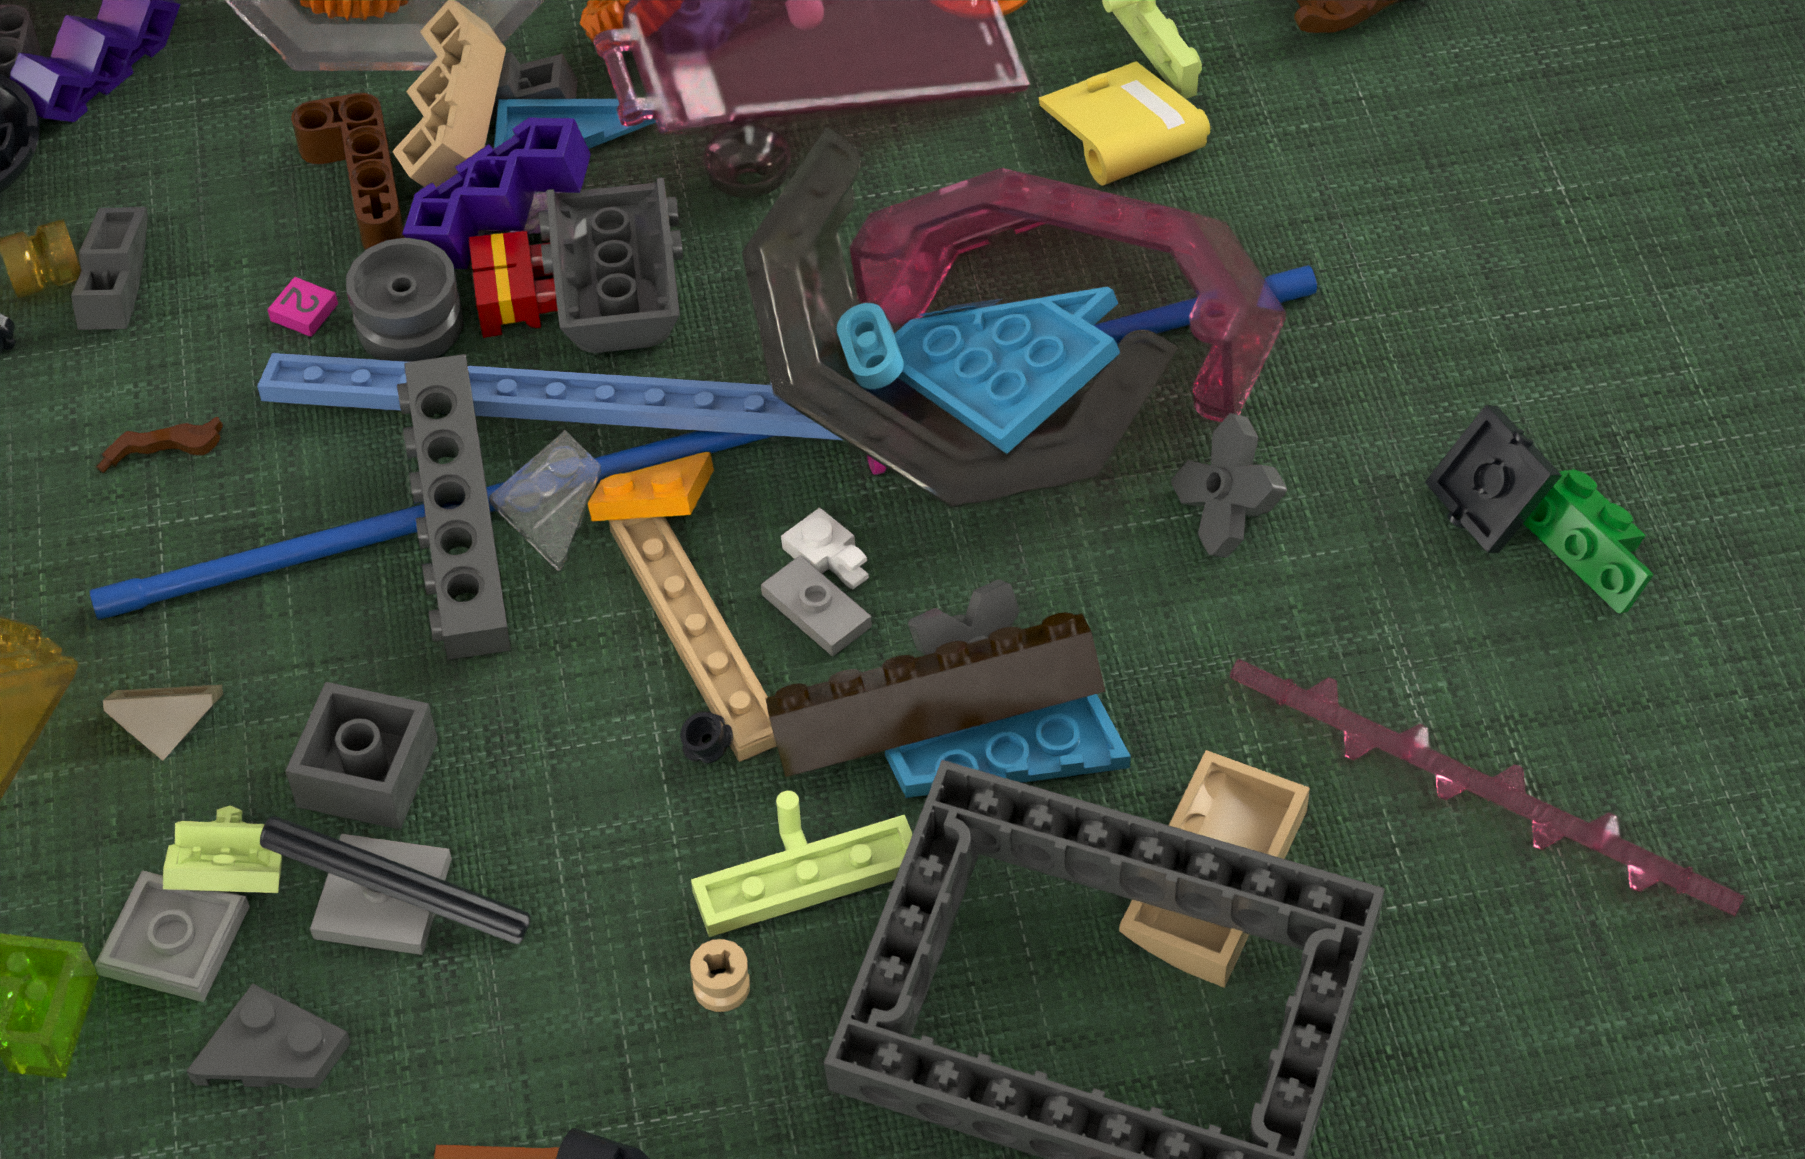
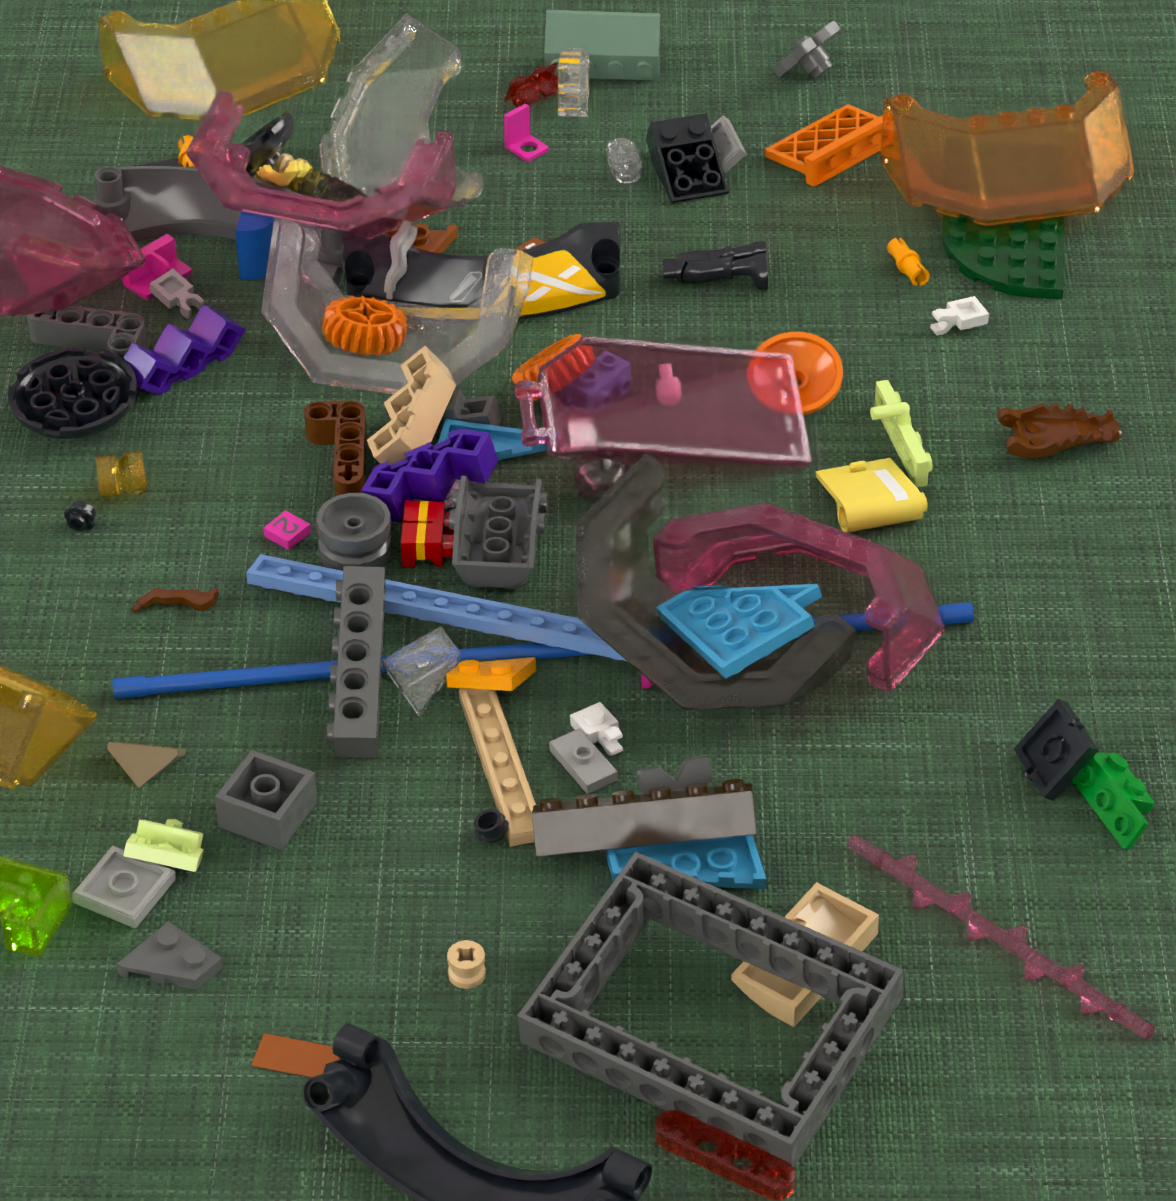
camera: 10 degrees right, 10 degrees down
(110, 268) = (165, 487): dark grey slope -> none
(373, 919) = (261, 885): light grey plate -> none
(395, 879) = (271, 874): black axle -> none
(802, 873) = (528, 916): yellowish green plate -> none
(870, 346) = (652, 601): medium azure plate -> none
(1229, 486) = (876, 728): dark grey plant -> none

